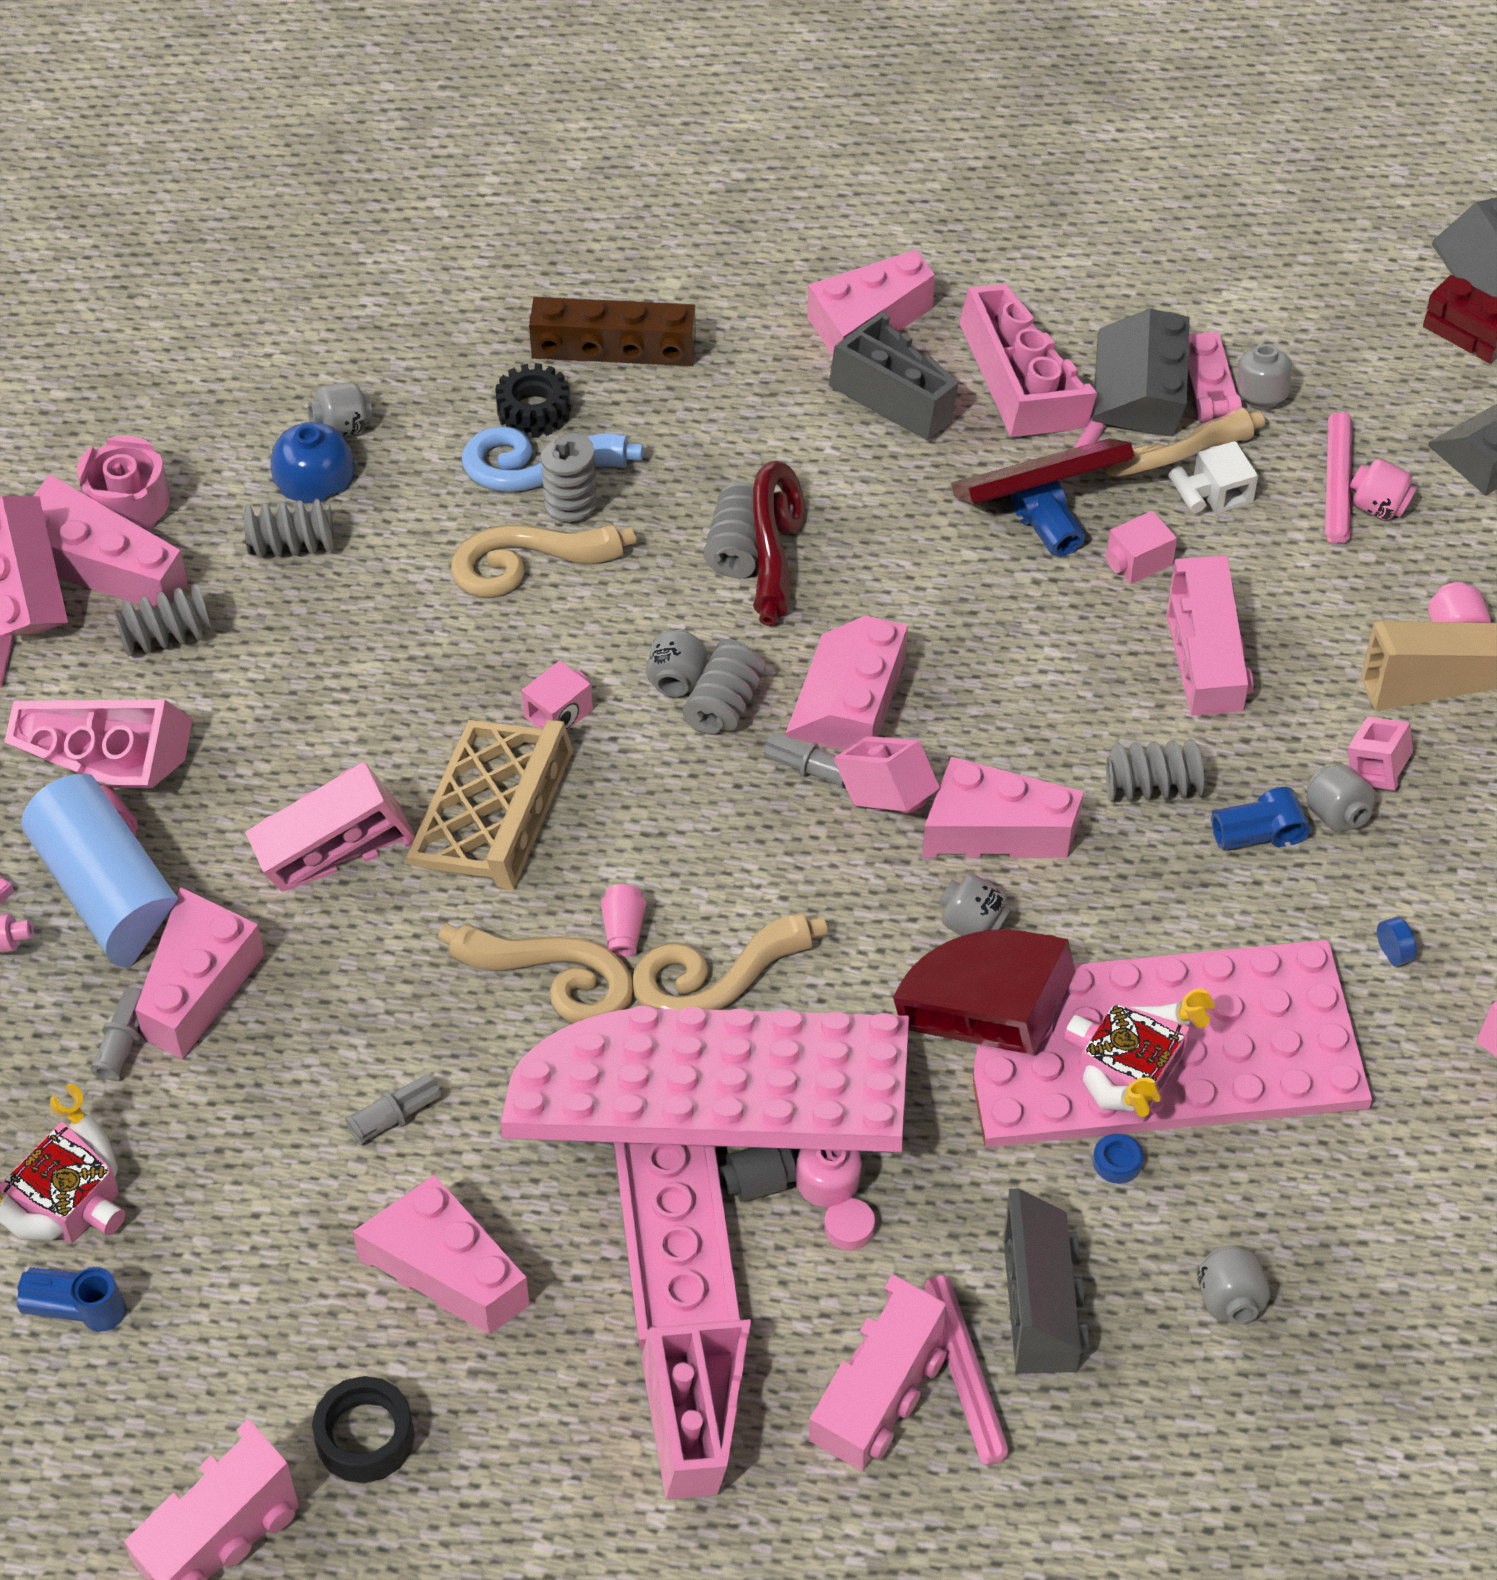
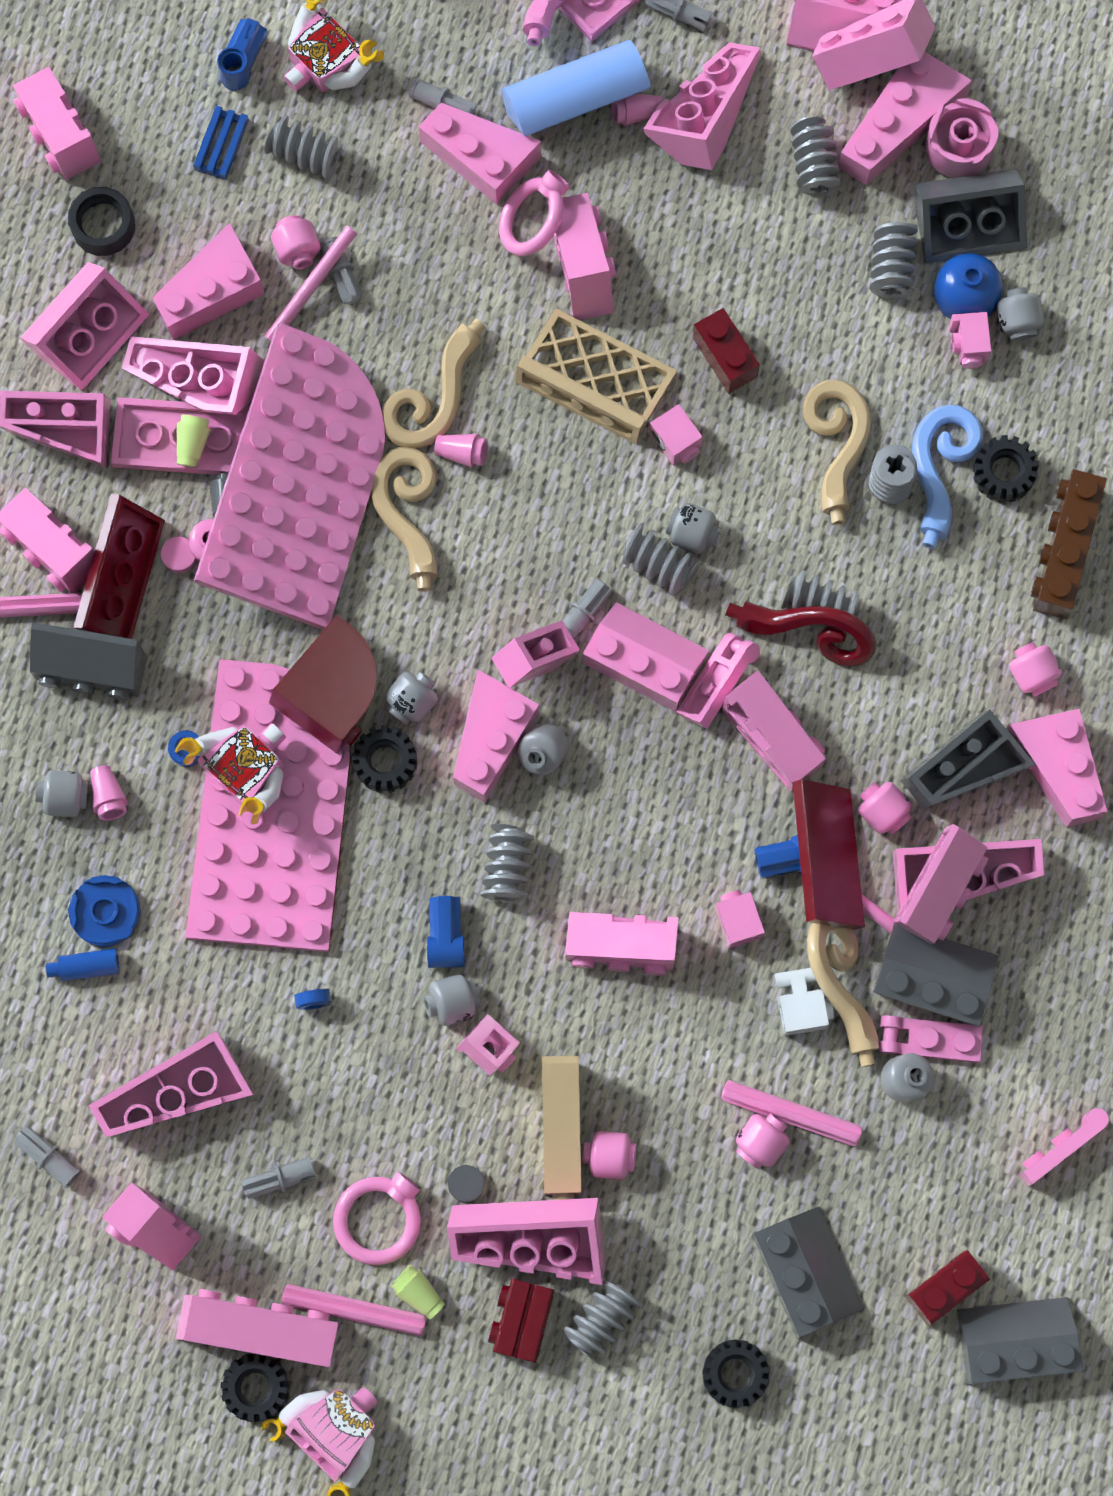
camera: 105 degrees right, 25 degrees up
(212, 1181) = (303, 147): none -> light grey piece
(215, 467) = (971, 215): none -> dark grey slope
(215, 1283) = (230, 117): none -> blue tile
(247, 859) = (553, 188): none -> bright pink piece
(362, 1161) = (295, 242): none -> bright pink head
(379, 447) = (971, 338): none -> bright pink brick
(423, 1131) = (314, 279): none -> bright pink bar
(437, 666) = (725, 350): none -> dark red brick
(532, 1414) = (85, 325): none -> bright pink slope
(585, 1235) = (201, 374): none -> bright pink wedge
(688, 1217) = (191, 439): none -> yellowish green cone
(765, 343) = (1035, 669): none -> bright pink head
(854, 603) = (718, 679): none -> bright pink plate
(907, 548) = (773, 730): none -> bright pink wedge
(907, 1266) = (119, 569): none -> dark red tile
(966, 441) = (885, 807): none -> bright pink head
(1003, 749) = (543, 749): none -> light grey head
(1052, 348) = (942, 885): none -> bright pink slope
(1072, 905) = (384, 738): none -> black tyre
(1217, 1227) = (107, 794): none -> bright pink cone
(1283, 252) = (1065, 1145): none -> bright pink plate
(1362, 1219) = (114, 915): none -> blue tile
(1453, 1210) = (85, 965): none -> blue cylinder

